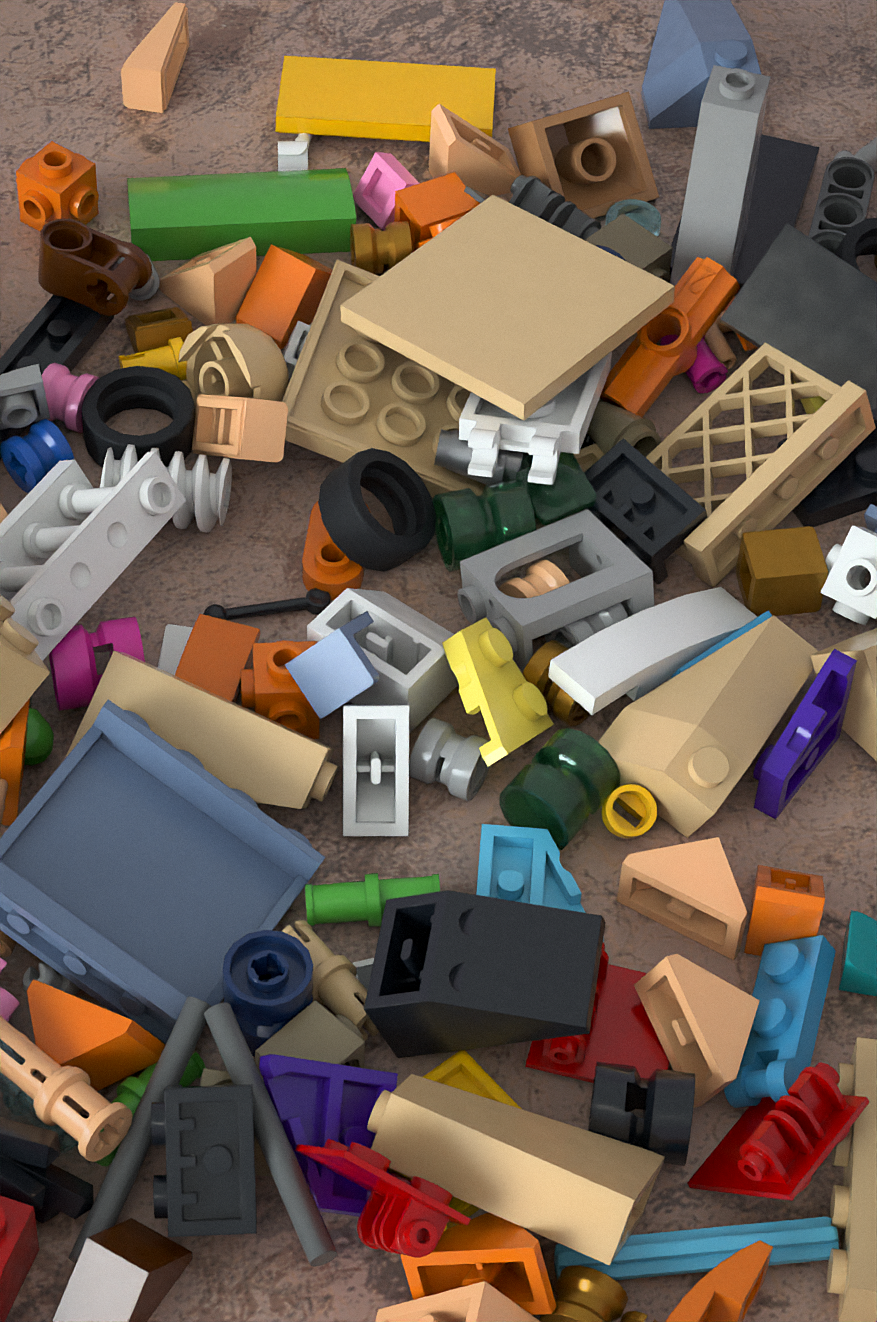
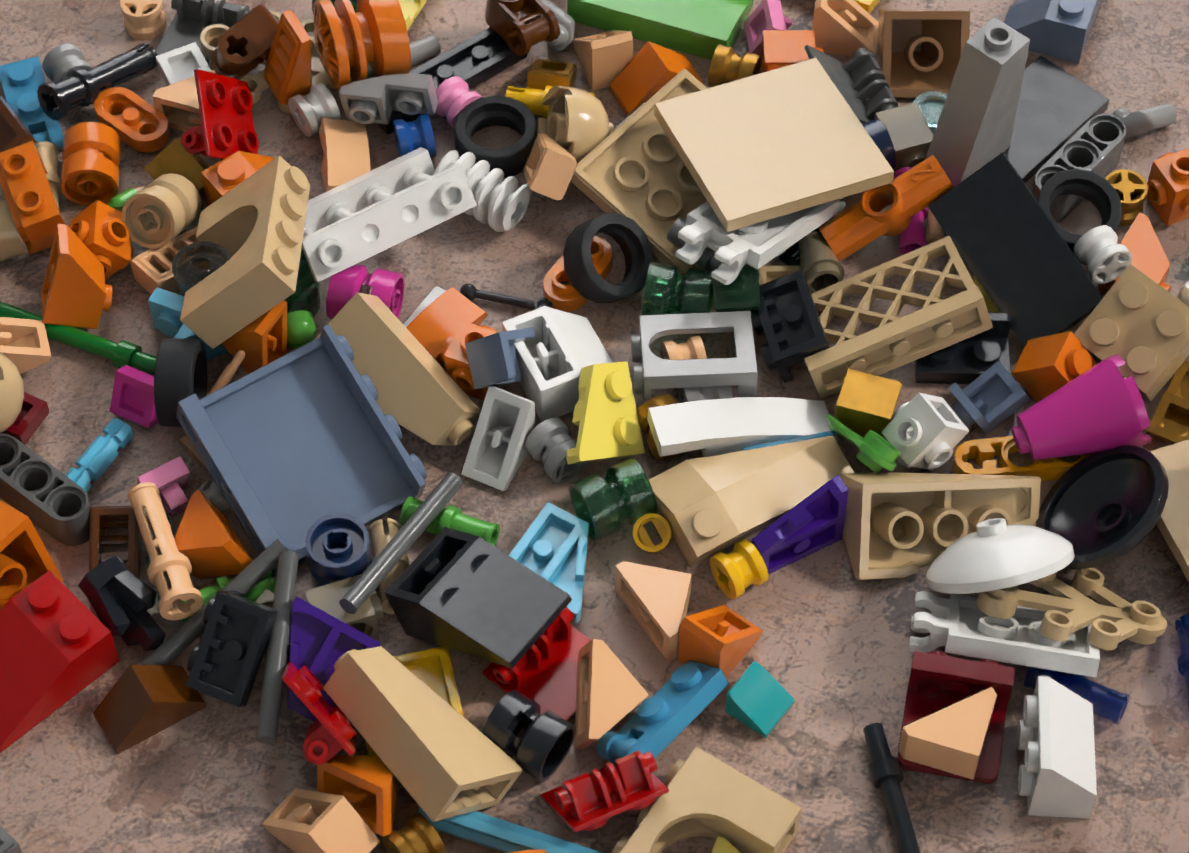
camera: 30 degrees right, 5 degrees up
(341, 943) = (400, 543): none -> dark grey bar
(757, 813) = (738, 569): none -> yellow wheel
(832, 611) = (874, 449): none -> bright green plate

